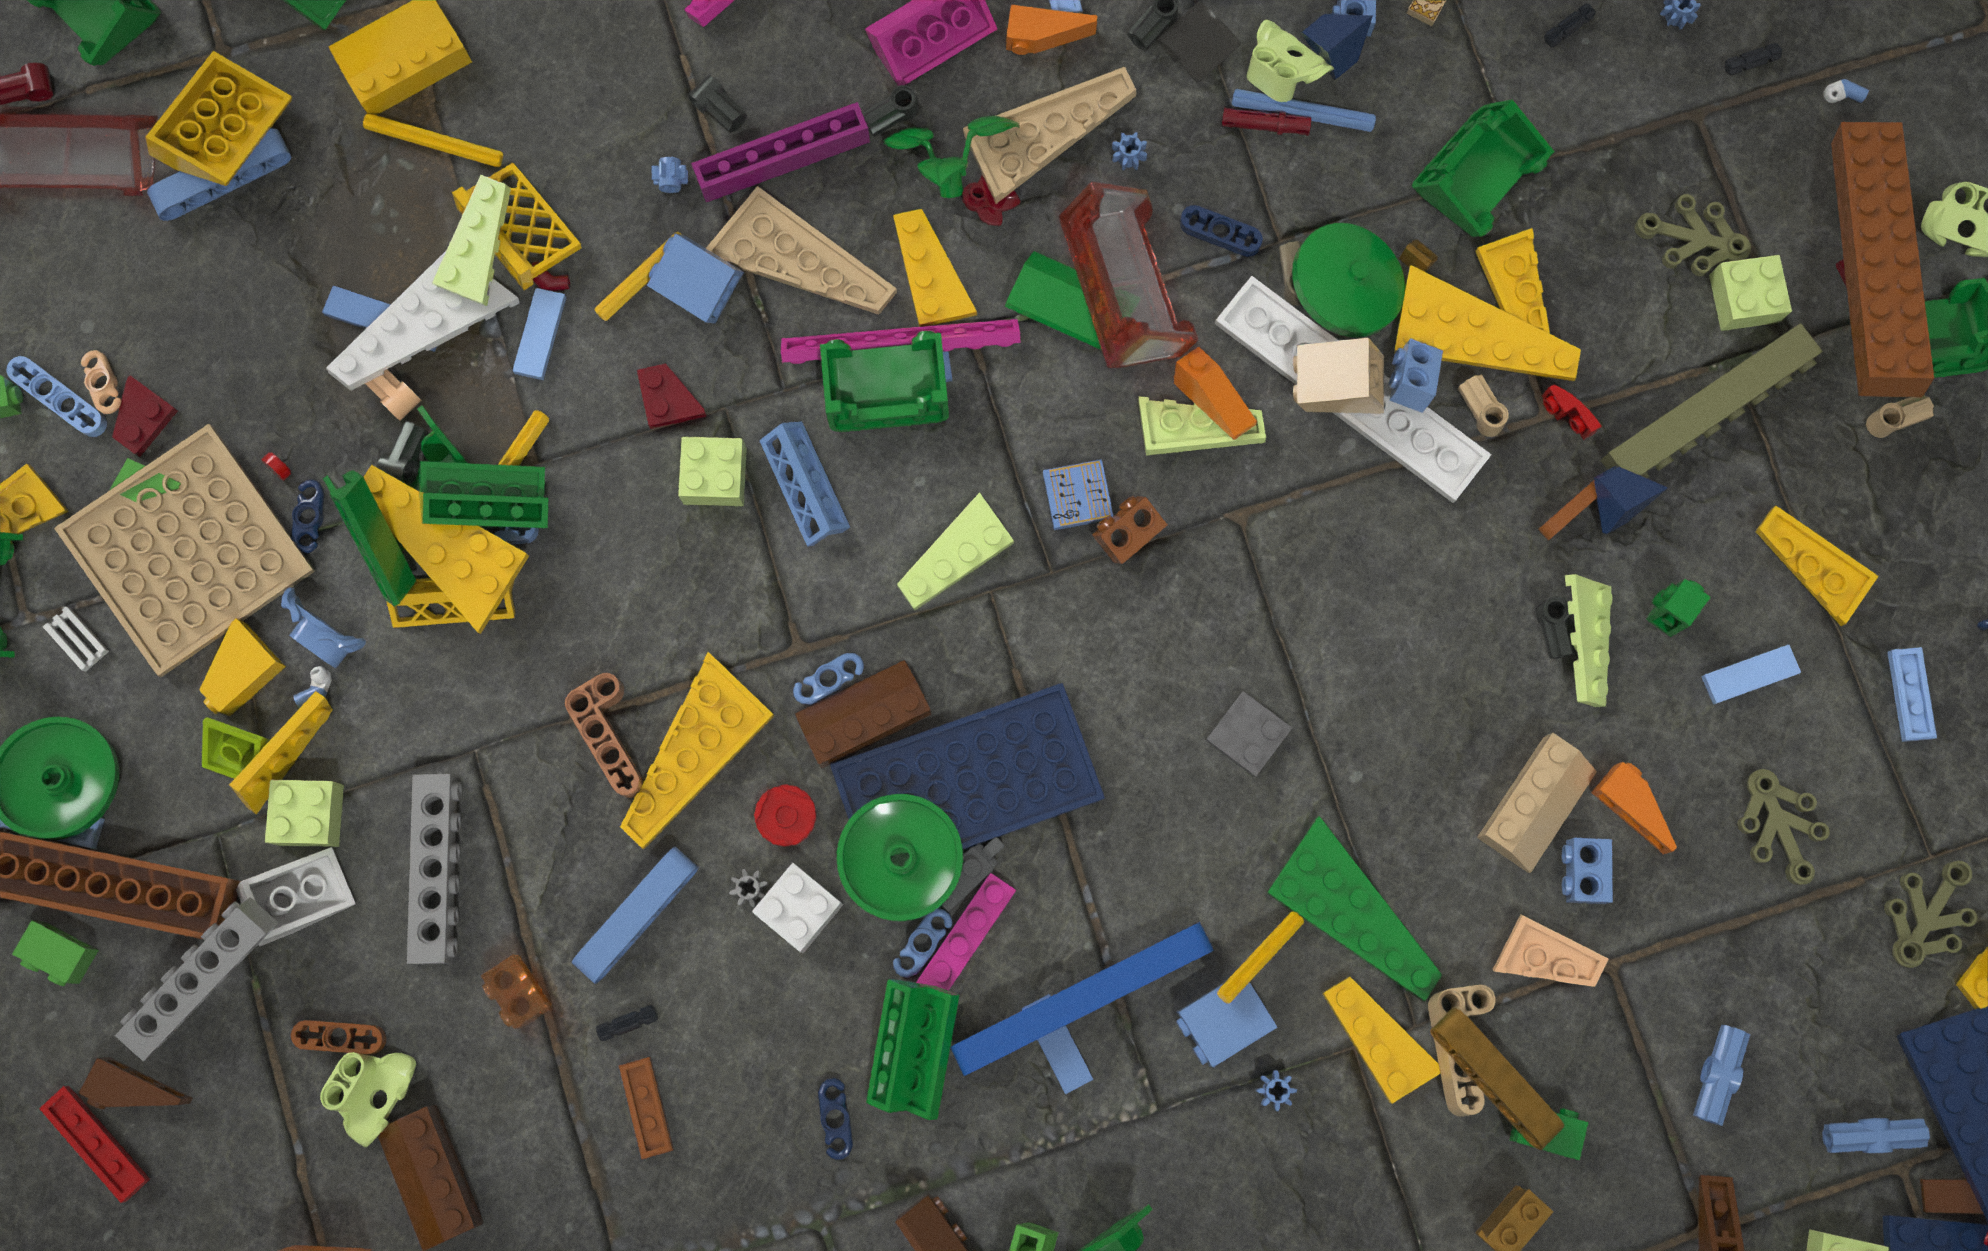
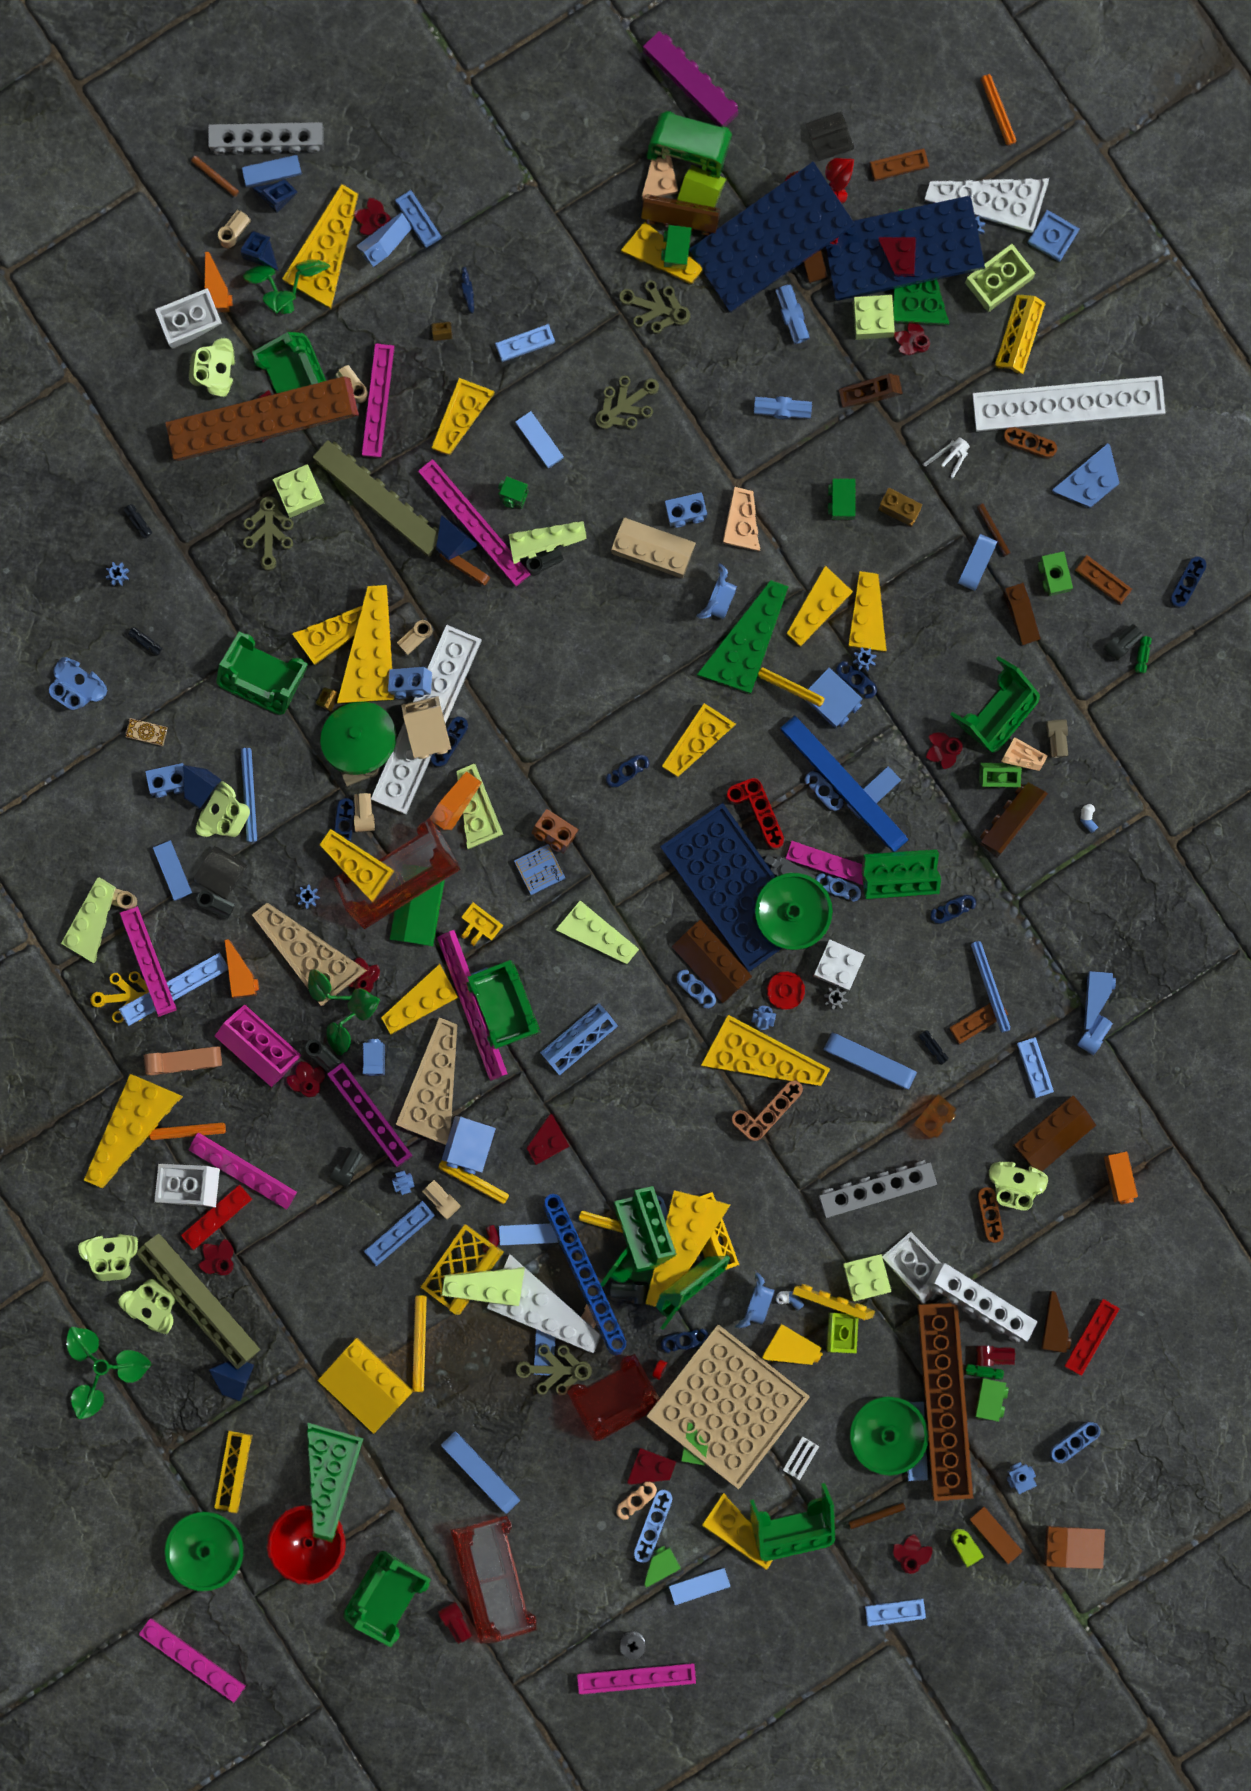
camera: 105 degrees left, 5 degrees up
(103, 956) = (984, 1372): none -> green axle
(122, 971) = (989, 1356): none -> dark red piece
(216, 121) = (449, 1478): yellow slope -> none
(255, 386) = (615, 1399): none -> clear red windscreen
(328, 318) = (556, 1370): none -> olive plant
(432, 384) = (584, 1264): none -> blue beam
(545, 1178) = (1035, 1067): none -> light blue tile
(600, 155) = (399, 1233): none -> medium blue tile
(621, 226) = (444, 1203): none -> tan piece
(692, 1143) = (990, 986): none -> medium blue axle
(712, 471) = (588, 1096): yellowish green brick -> none
(751, 767) = (763, 1017): none -> medium blue gear
(861, 176) = (374, 1058): none -> medium blue hips
(866, 83) = (306, 1076): none -> dark red plate
(1020, 389) = (482, 922): none -> yellow hinge
(1065, 964) = (825, 799): none -> medium blue piece
(1069, 851) = (760, 815): none -> red beam
(1096, 1174) = (941, 749): none -> dark red plate
(1149, 232) = (362, 868): none -> yellow wing
(1184, 656) = (622, 778): none -> dark blue piece
(1219, 793) = (698, 738): none -> yellow wing
(1225, 260) = (363, 813): none -> tan piece
(1239, 1082) = (865, 681): none -> dark blue piece
(1248, 734) = (659, 728): flat silver plate -> none
(1271, 122) = (263, 816): dark red pin -> none
(1317, 436) = (461, 732): none -> dark blue beam
(1343, 1116) = (867, 619): none -> yellow wing
(1434, 884) = (720, 598): none -> medium blue piece
(1461, 999) = (811, 558): tan beam -> none
(1497, 1078) = (823, 536): pearl gold beam -> none
(1562, 403) = (402, 589): red slope -> none
(1634, 802) = (636, 493): orange slope -> none
(1642, 538) = (473, 522): none -> dark pink plate
(1843, 89) = (143, 460): arm -> none
(1866, 446) = (378, 401): none -> dark pink plate
(1956, 571) = (442, 331): none -> pearl gold slope

